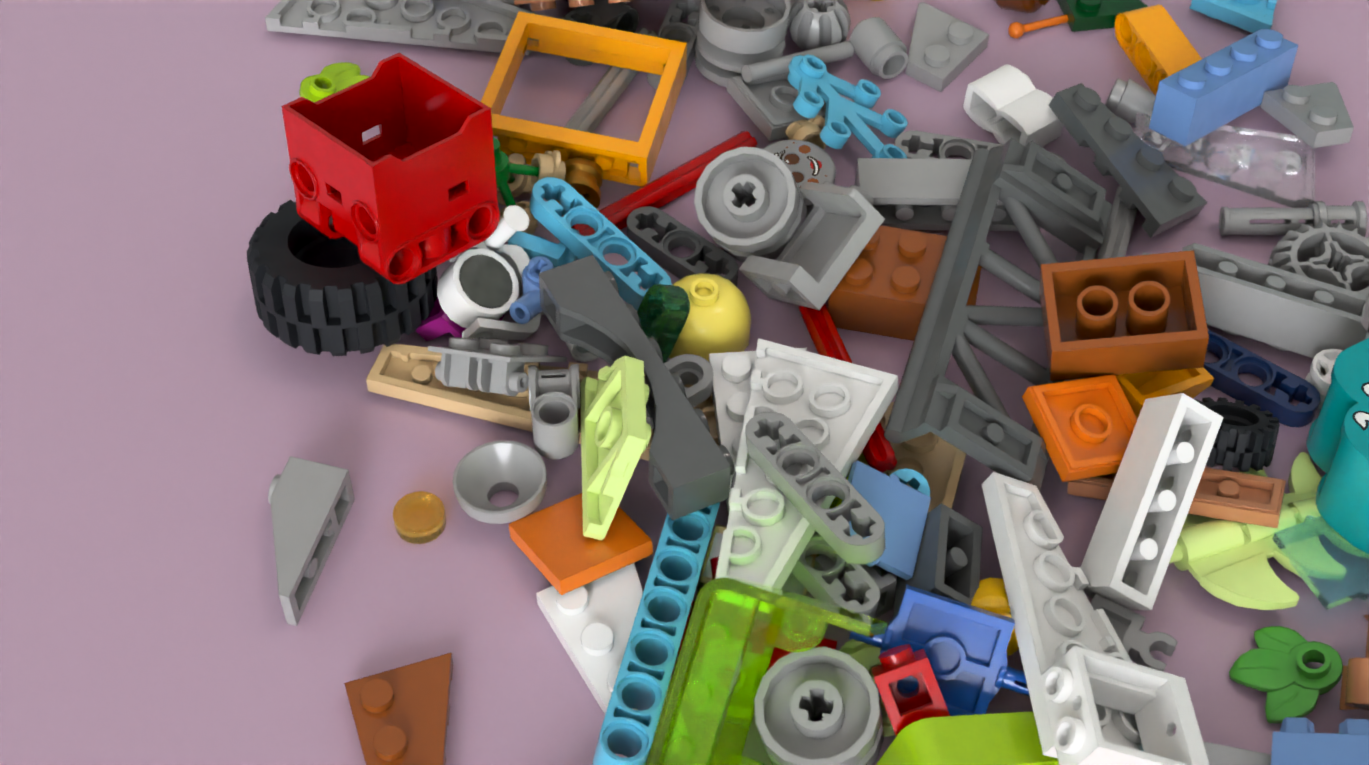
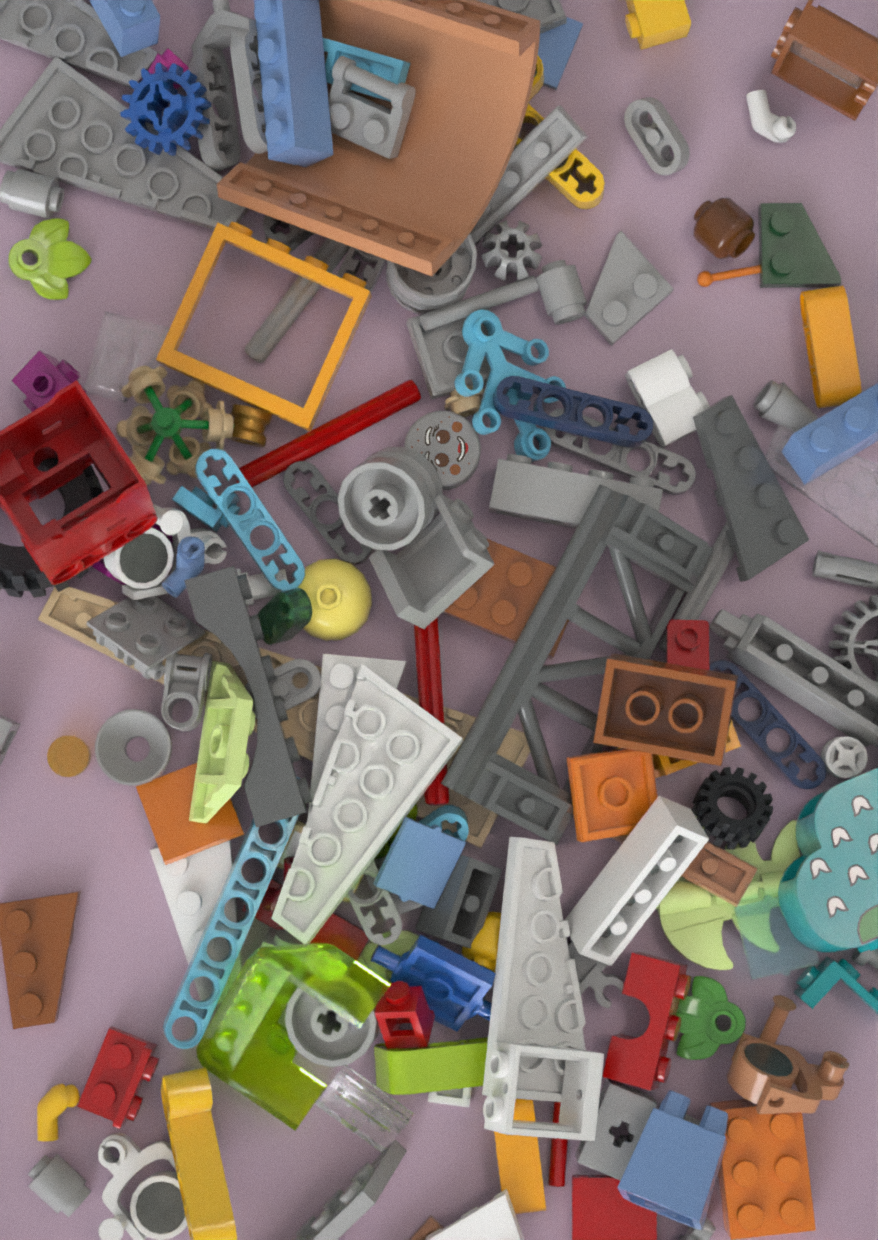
camera: 15 degrees right, 35 degrees up
(319, 42) = (31, 193): none -> light grey brick
(819, 482) = (365, 849): light grey beam -> none
(923, 119) = (572, 417): none -> dark blue beam
(1213, 633) = (660, 987): none -> red arch

